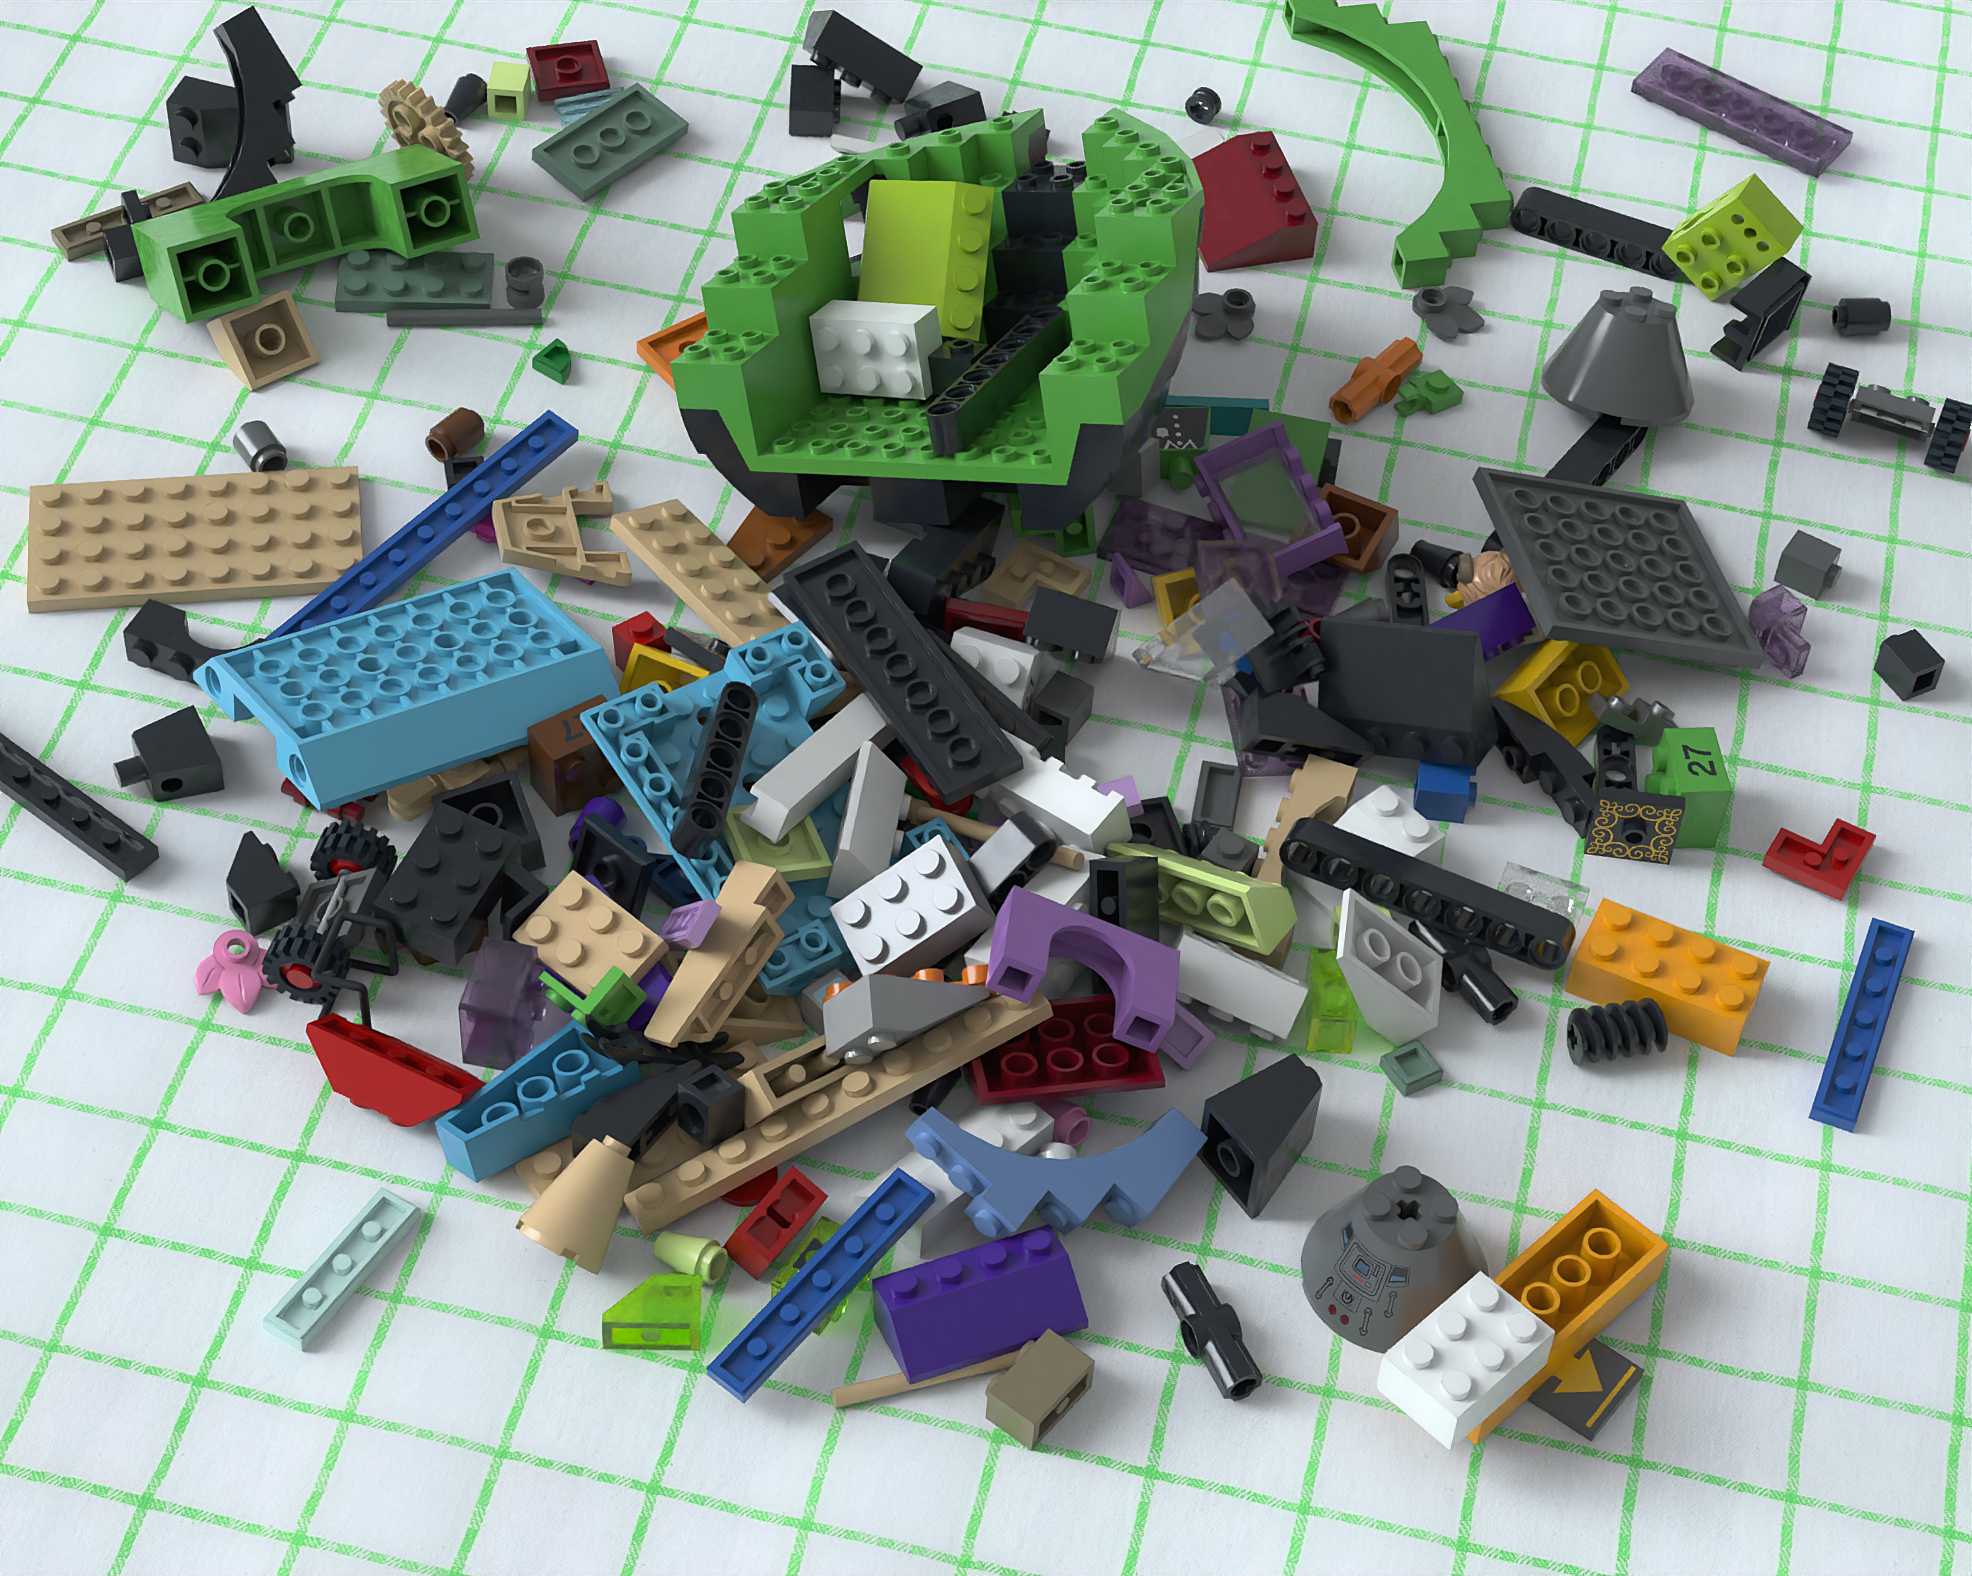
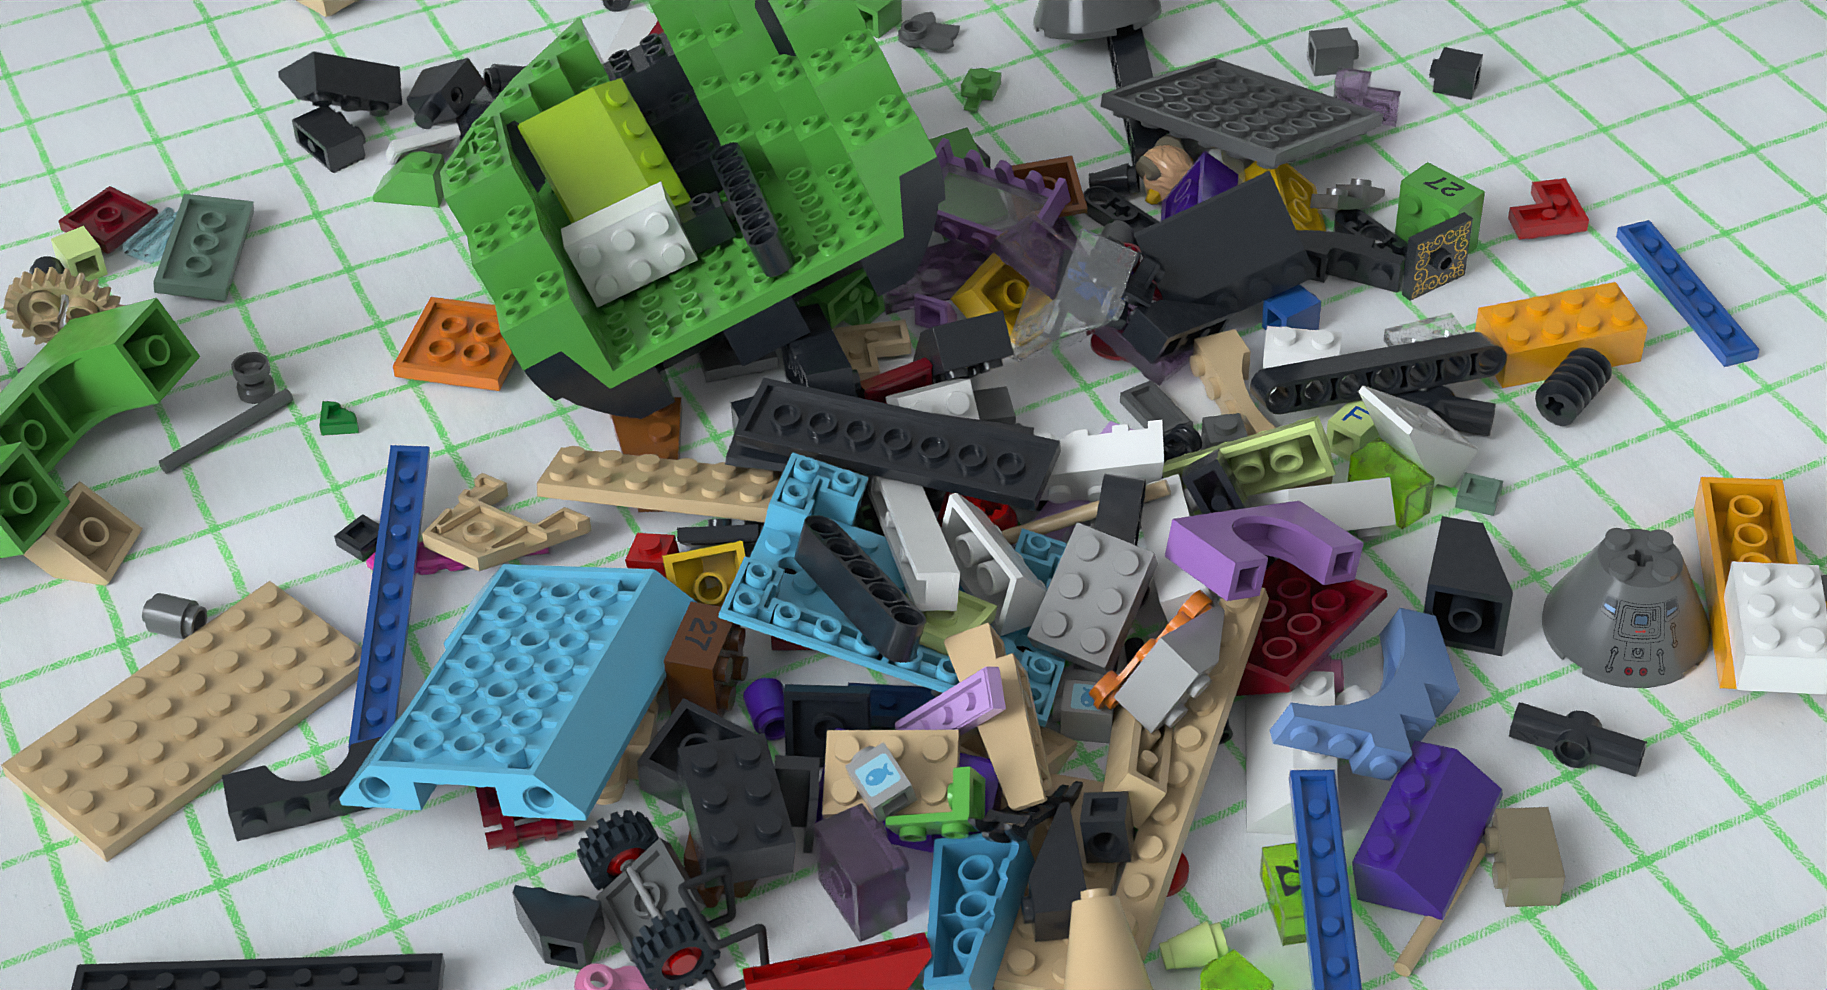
camera: 35 degrees left, 5 degrees down
(173, 758) = (376, 881): black torso -> none
(427, 282) = (149, 433): sand green plate -> none
(455, 434) = (325, 511): reddish brown brick -> none
(556, 938) = (880, 781): none -> light grey brick
(774, 1222) = (1233, 878): red brick -> none
(1375, 380) = (939, 96): orange piece -> none

